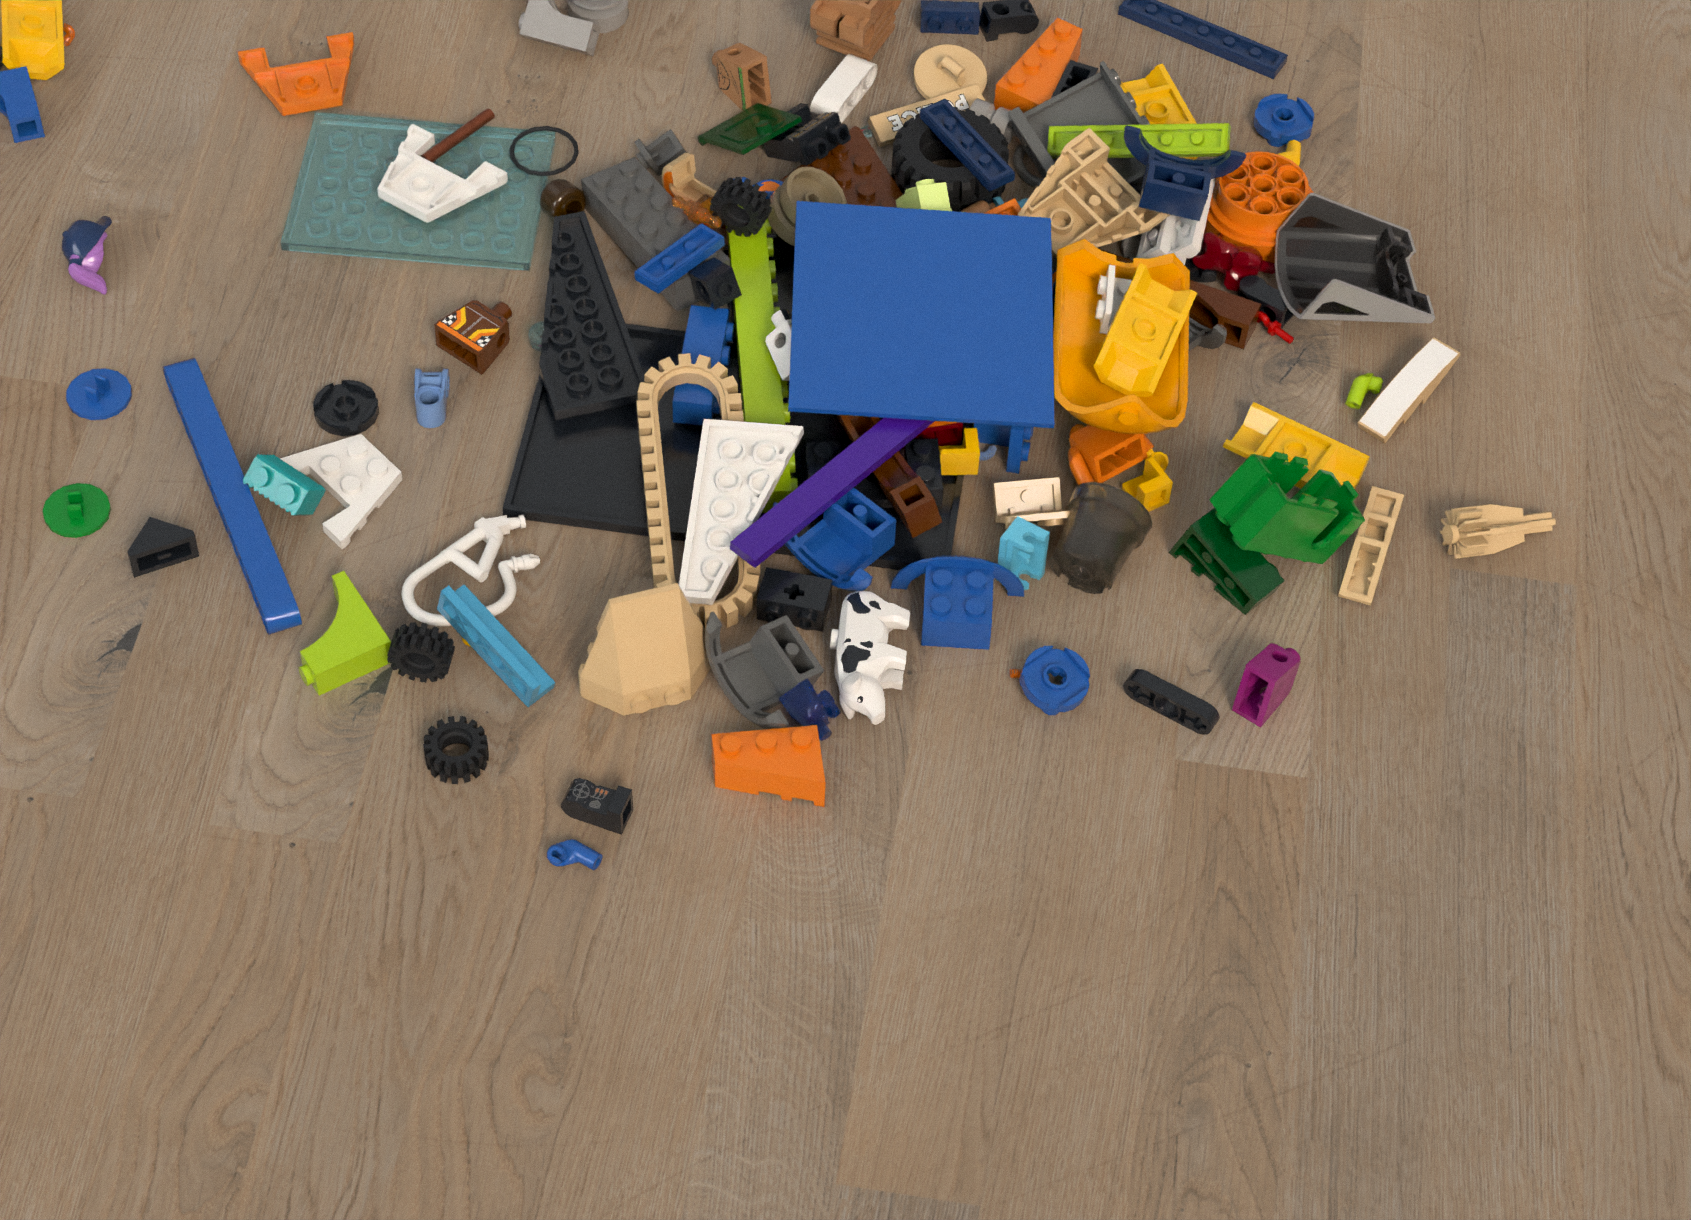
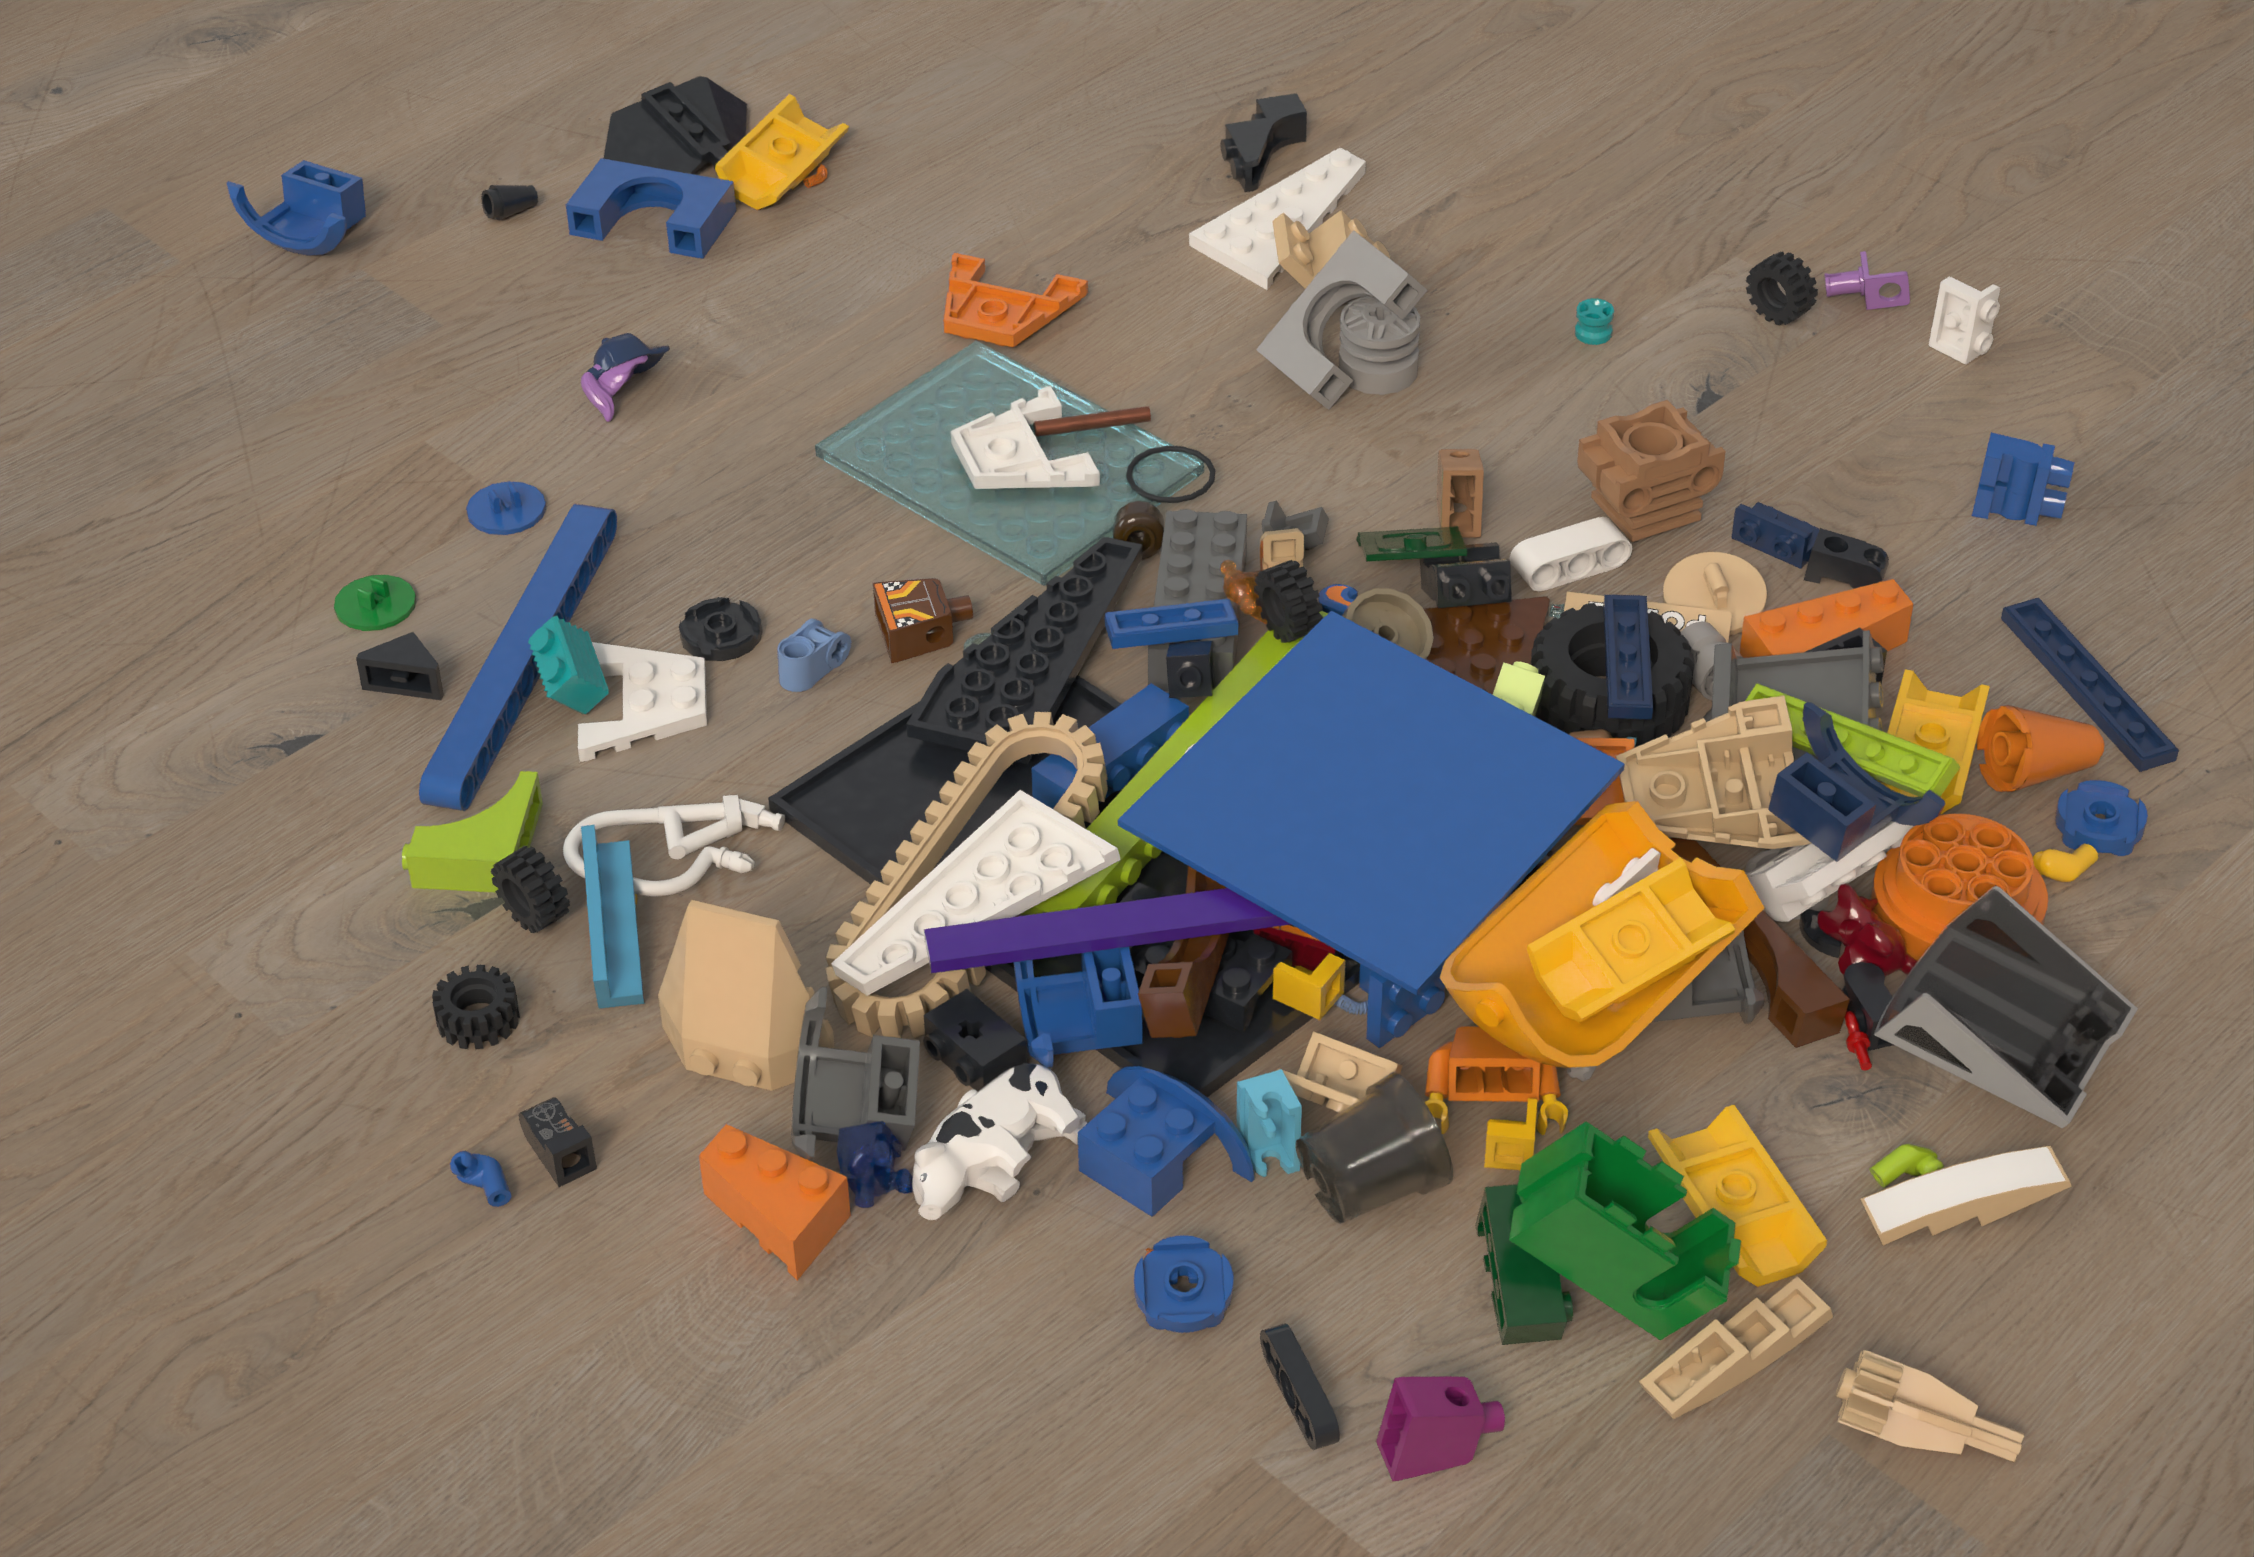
camera: 40 degrees right, 10 degrees down
(1218, 92) = (2034, 747): none -> orange cone

